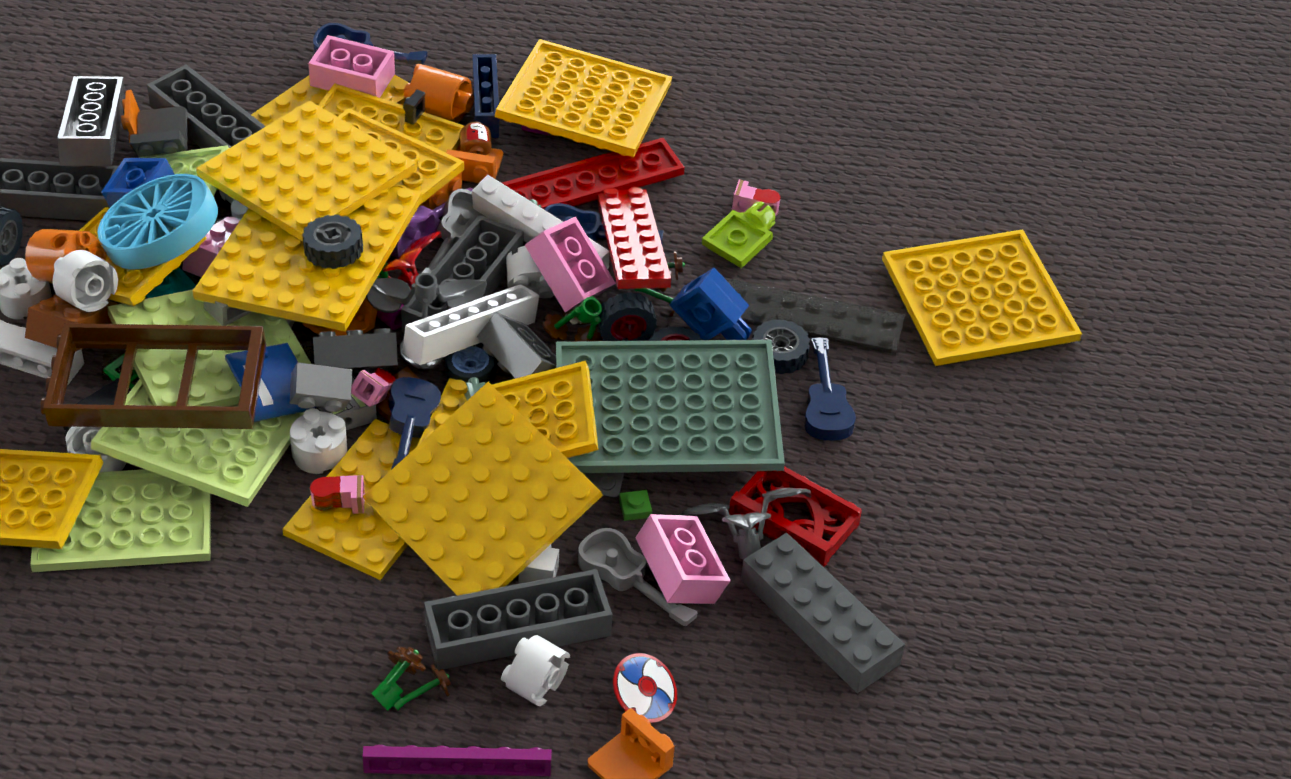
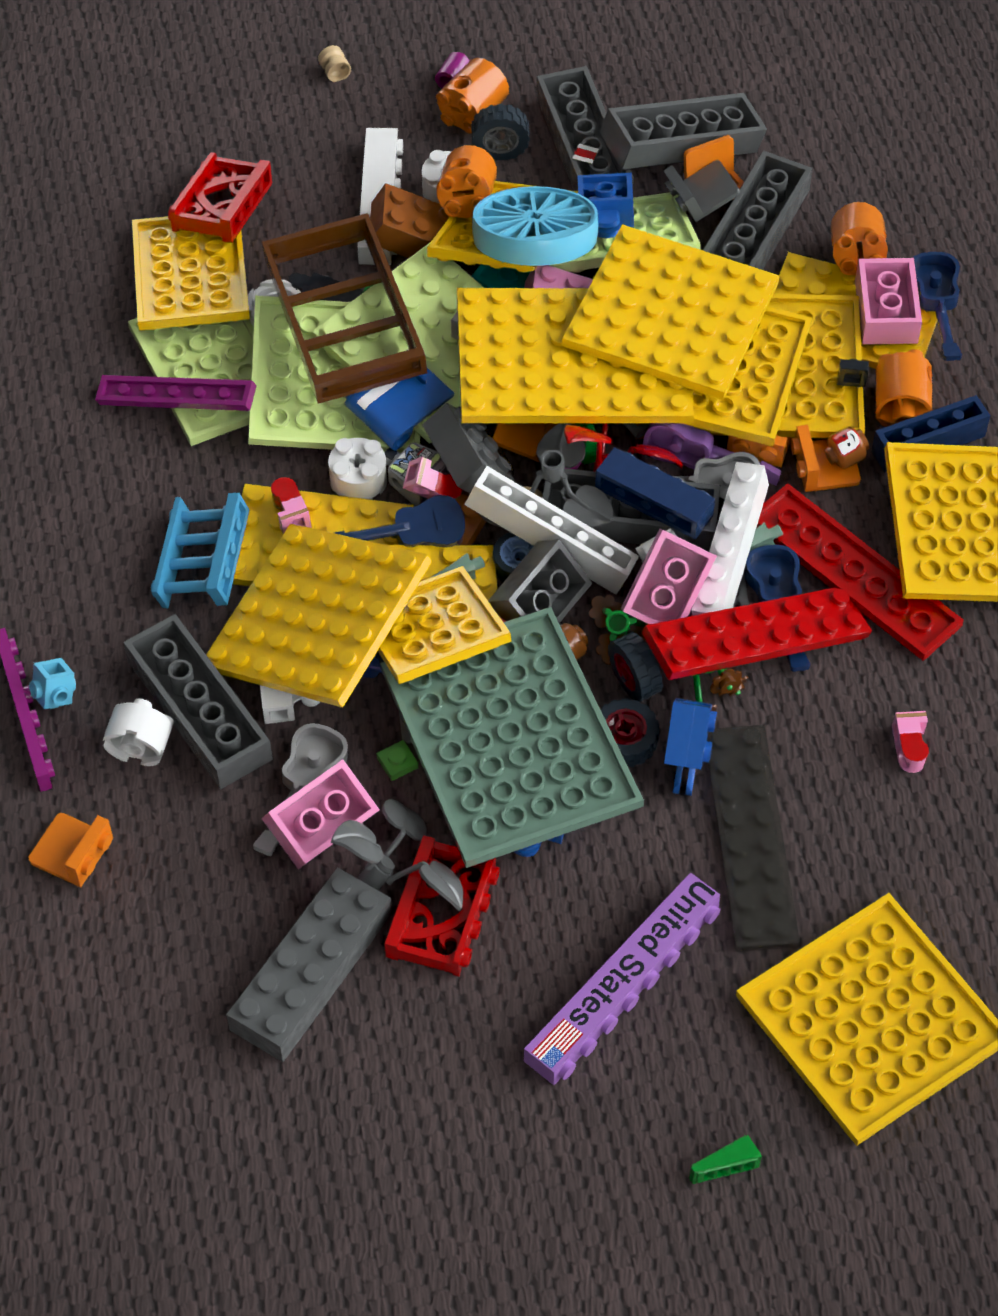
camera: 75 degrees right, 10 degrees up
(71, 185) = (585, 153): none -> sticker
(84, 280) = (428, 204): white brick -> none
(154, 543) = (176, 392): none -> magenta plate
(276, 64) = (857, 234): none -> orange cylinder
(320, 387) = (395, 435): light grey brick -> none
(333, 241) = (562, 364): black wheel -> none
(349, 547) = (221, 562): none -> dark azure fence
(406, 660) = (94, 627): plant -> none
(446, 724) = (52, 683): none -> medium azure brick
(474, 247) = (655, 493): none -> dark blue brick
(645, 686) = (156, 833): shield -> none
(741, 234) = (844, 742): lime plate -> none
(789, 344) = (691, 814): black wheel -> none
(828, 411) = (606, 903): dark blue piece -> none
(904, 422) = (622, 979): none -> medium lavender brick
(1076, 408) = (732, 1159): none -> green slope

